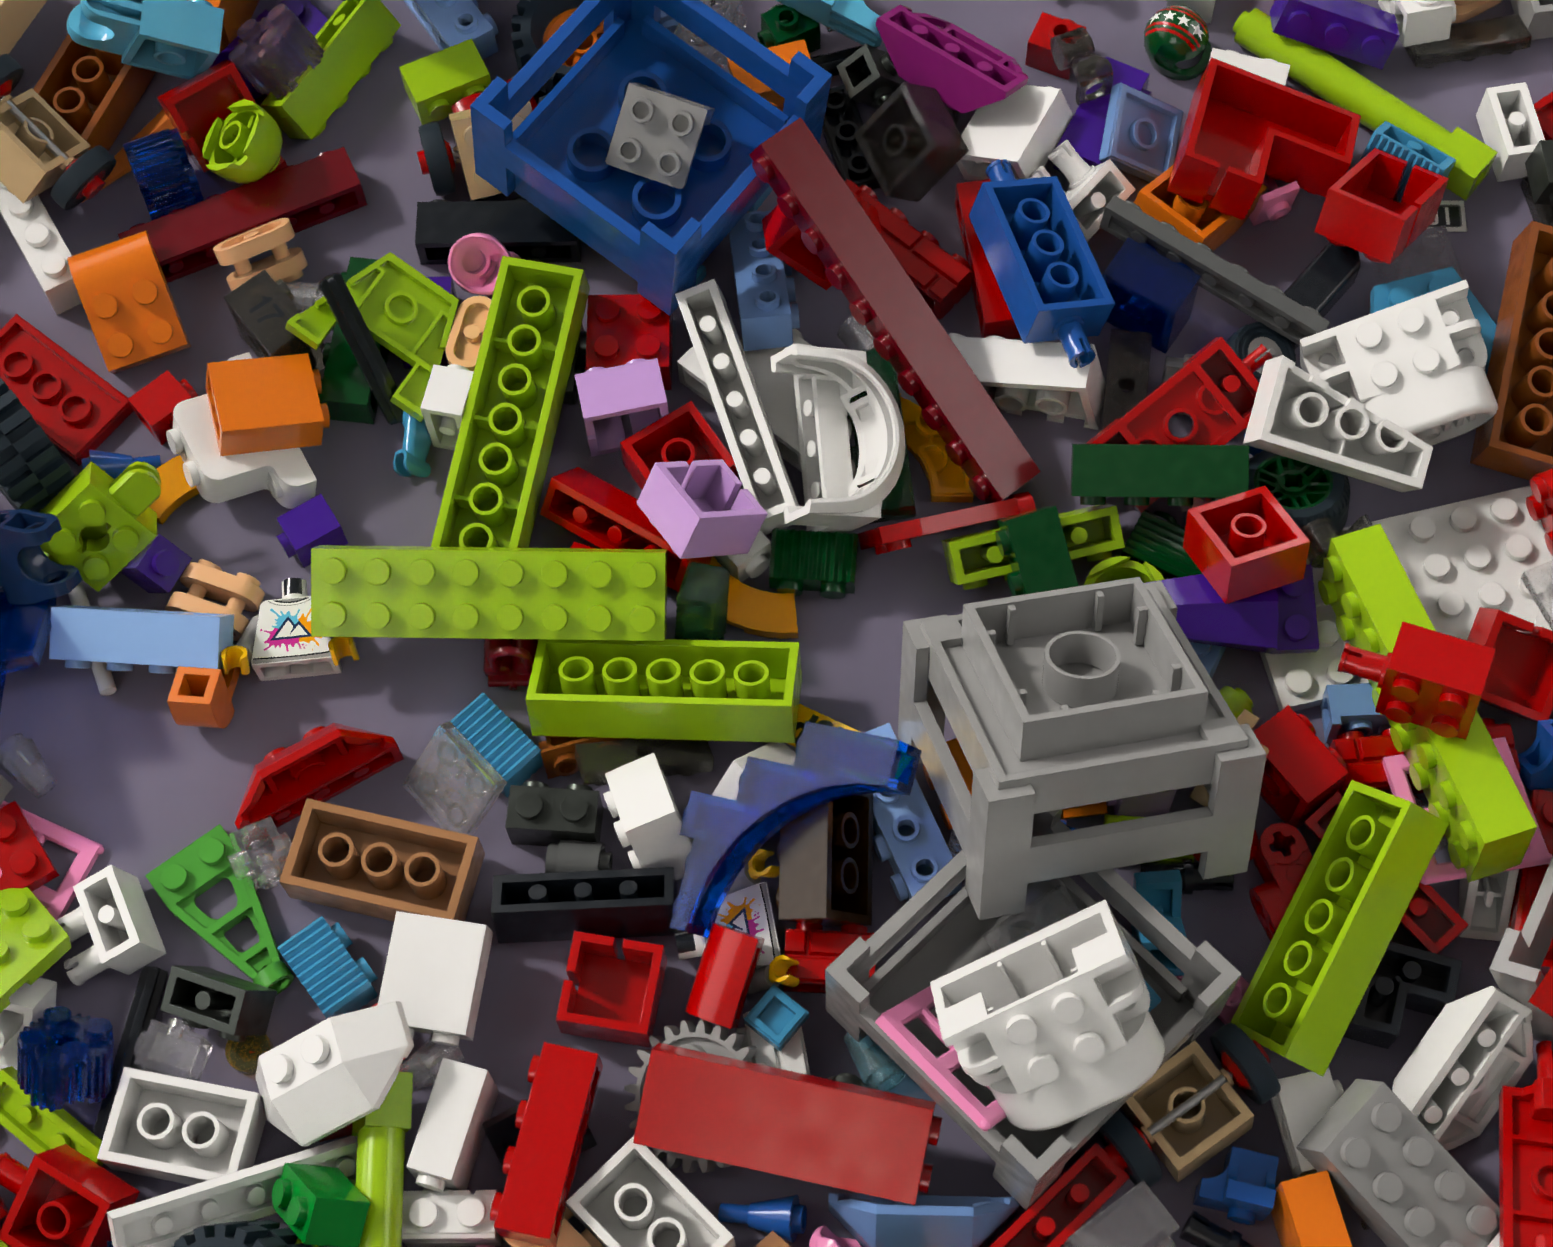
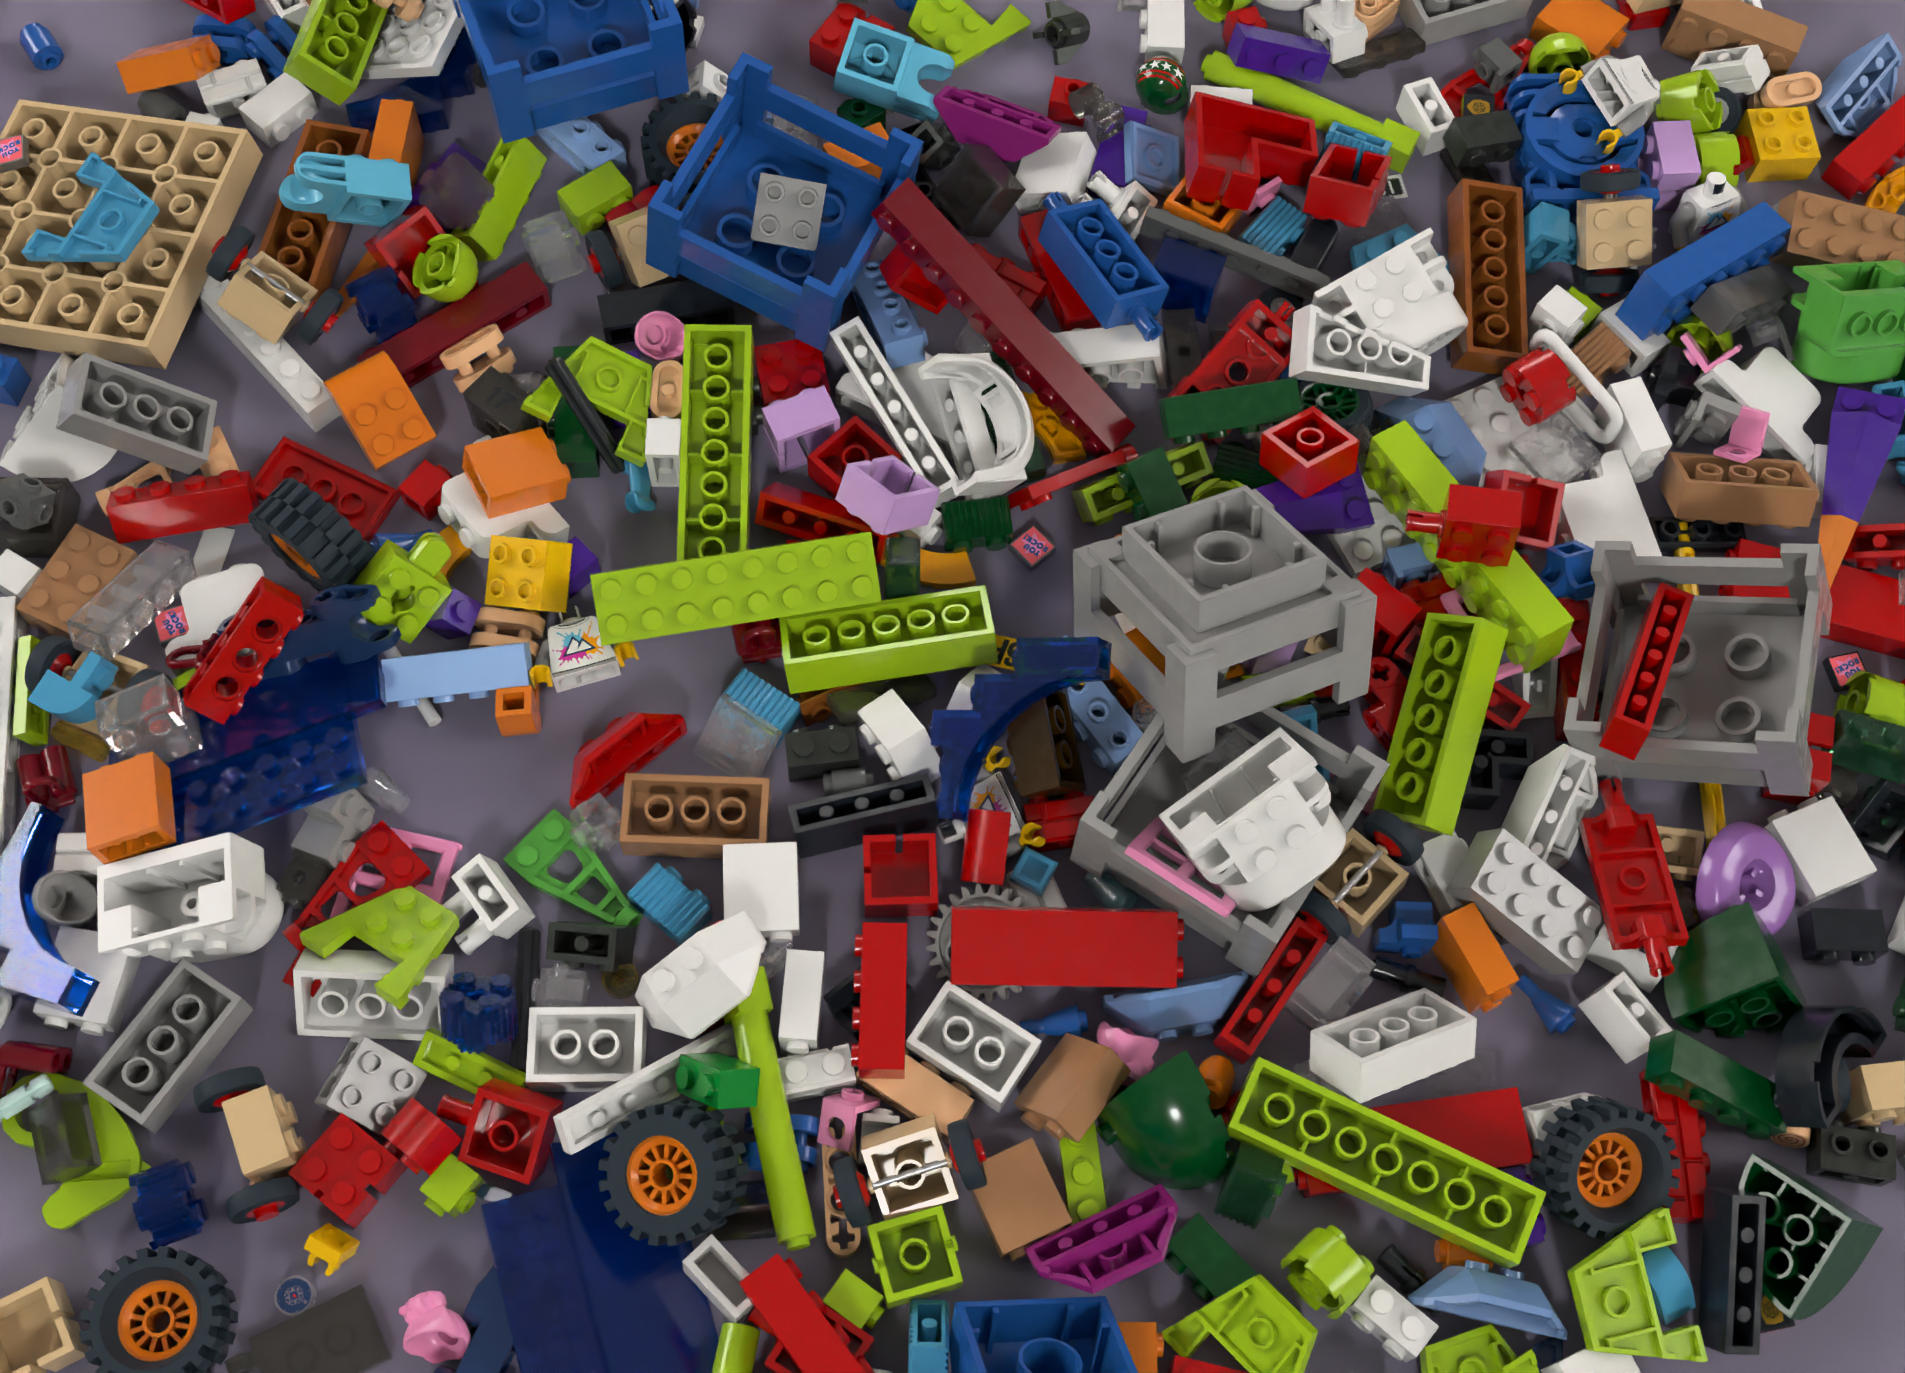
camera: 20 degrees left, 0 degrees up
(252, 531) = (528, 573): none -> yellow brick
(380, 135) = (553, 247): none -> clear brick
(878, 603) = (1032, 548): none -> tile
(1278, 248) = (1275, 228): none -> dark azure brick
(1433, 554) = (1442, 432): none -> medium blue wedge

